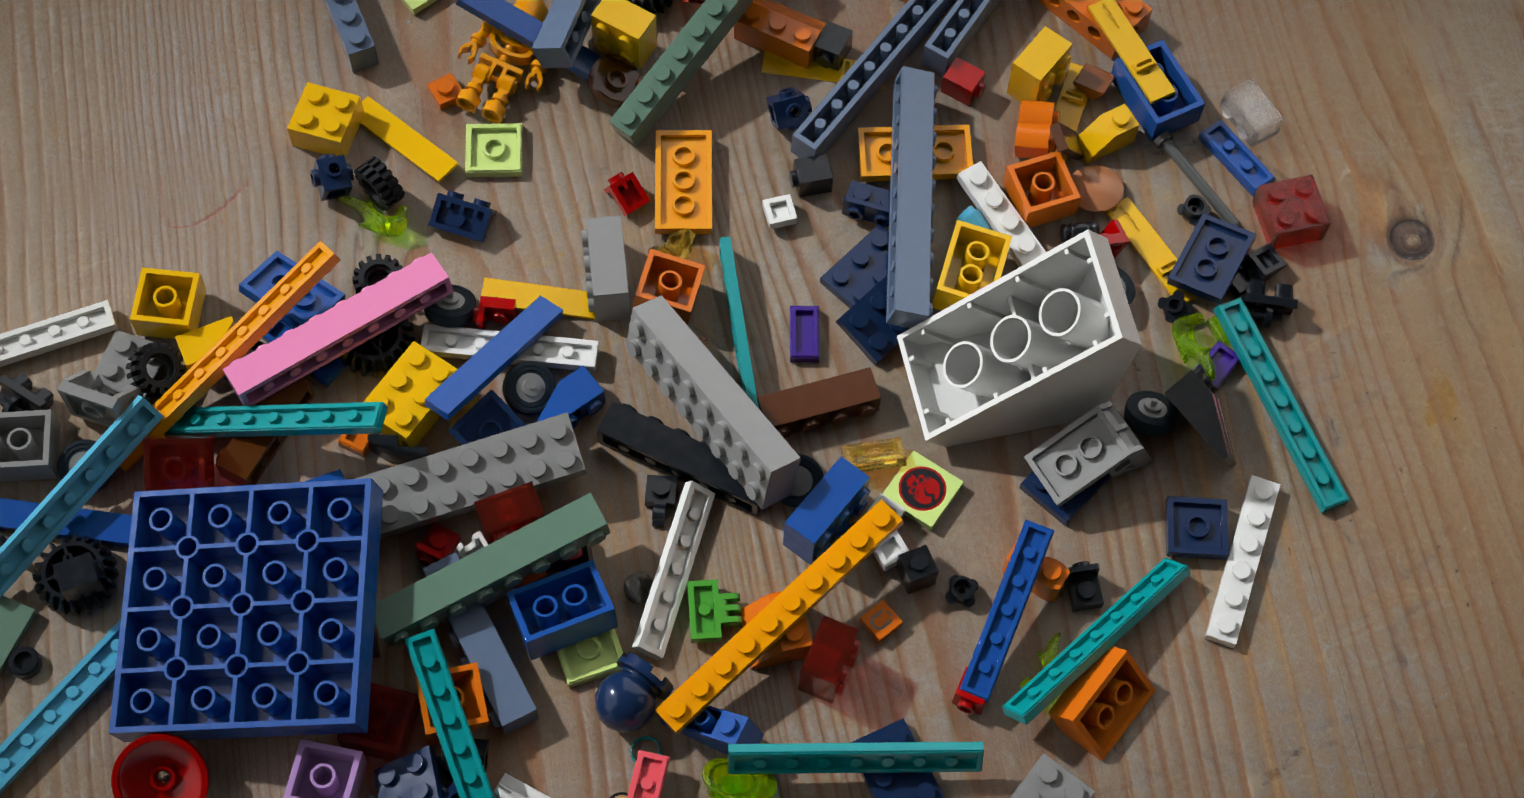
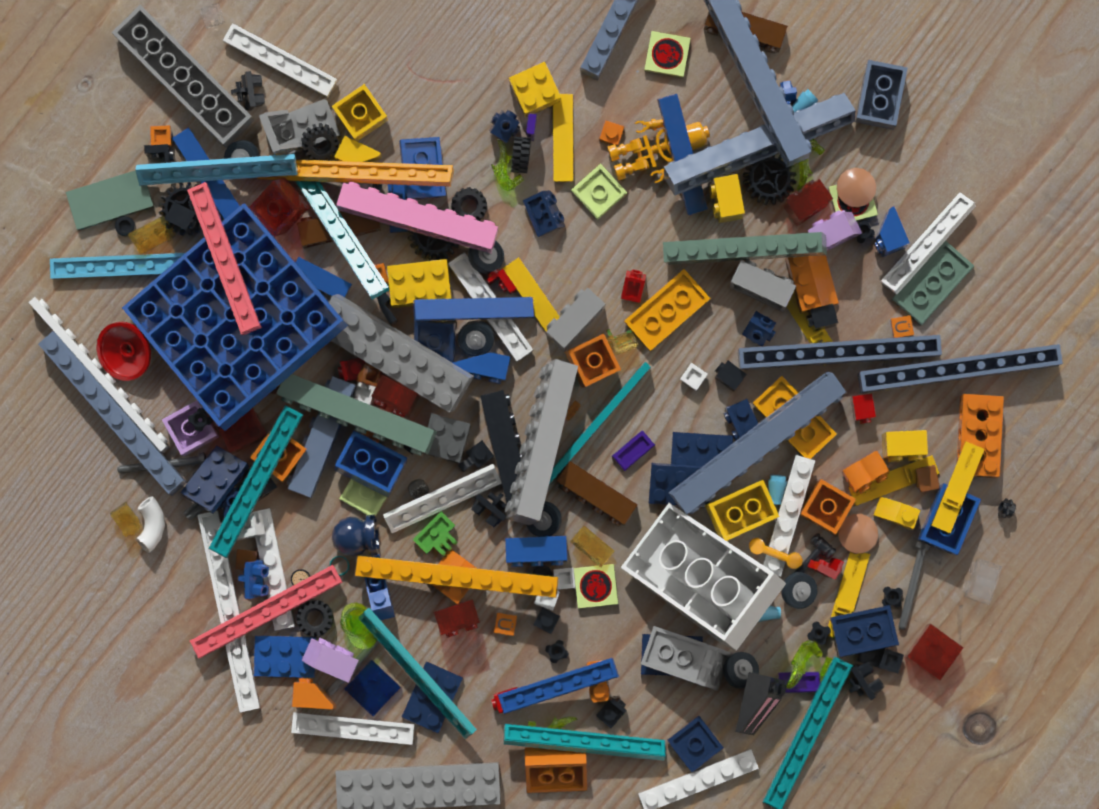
camera: 55 degrees right, 20 degrees up
(63, 636) = (151, 235): none -> clear yellow bracket
(174, 562) = (224, 259): none -> coral tile
(319, 745) = (200, 414): none -> black plate
(359, 145) = (531, 126): none -> dark purple tile
(459, 529) = (369, 375): none -> dark orange slope
(613, 79) = (695, 219): reddish brown tile -> none
(619, 504) = (450, 438): none -> dark grey brick
(733, 522) = (481, 504): none -> black hips
(746, 68) = (762, 285): none -> light grey brick
(1066, 141) = (868, 497): reddish brown tile -> none
(1190, 35) = (1006, 508): none -> black plate
(1236, 157) = (948, 594): blue tile -> none

